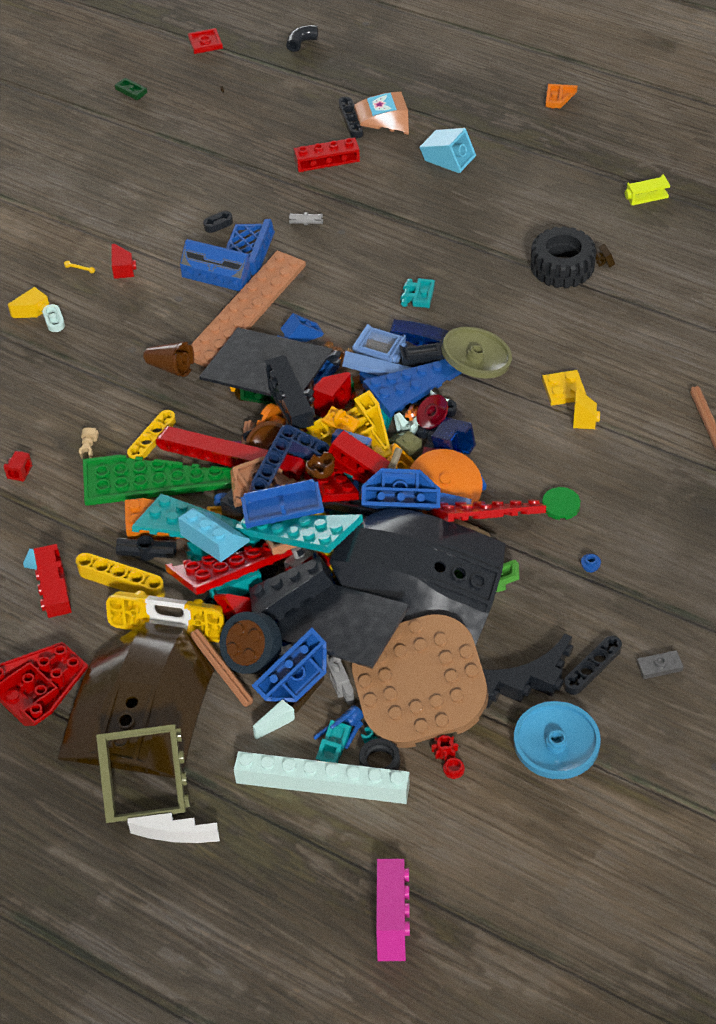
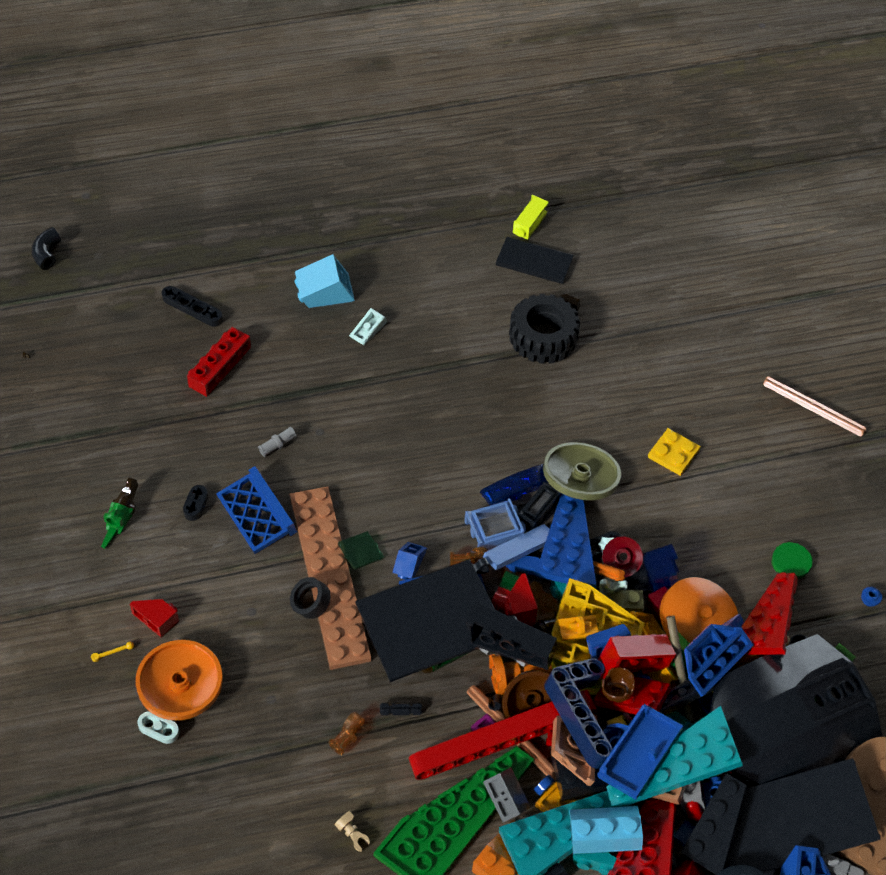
camera: 50 degrees left, 5 degrees up
(28, 304) = (118, 731): yellow slope -> none
(90, 300) = (179, 680): none -> orange dish
(148, 392) = (347, 732): none -> clear orange connector
(148, 434) = (401, 774): yellow beam -> none
(170, 198) = (120, 511): none -> green animal
(171, 357) = (328, 682): reddish brown cone -> none
(192, 484) = (507, 794): none -> dark grey hinge
(194, 403) = (401, 708): none -> black axle
(214, 308) = (320, 604): none -> black tyre
(215, 265) = (259, 553): blue slope -> none
(279, 306) = (360, 550): none -> clear green piece
(383, 111) = (223, 281): nougat wedge -> none
(423, 293) = (466, 443): teal plate -> none
(448, 191) = (368, 326): none -> light aqua slope
(559, 95) = (352, 168): orange wing -> none
(585, 412) = (721, 465): yellow slope -> none
(618, 218) = (534, 260): none -> black tile

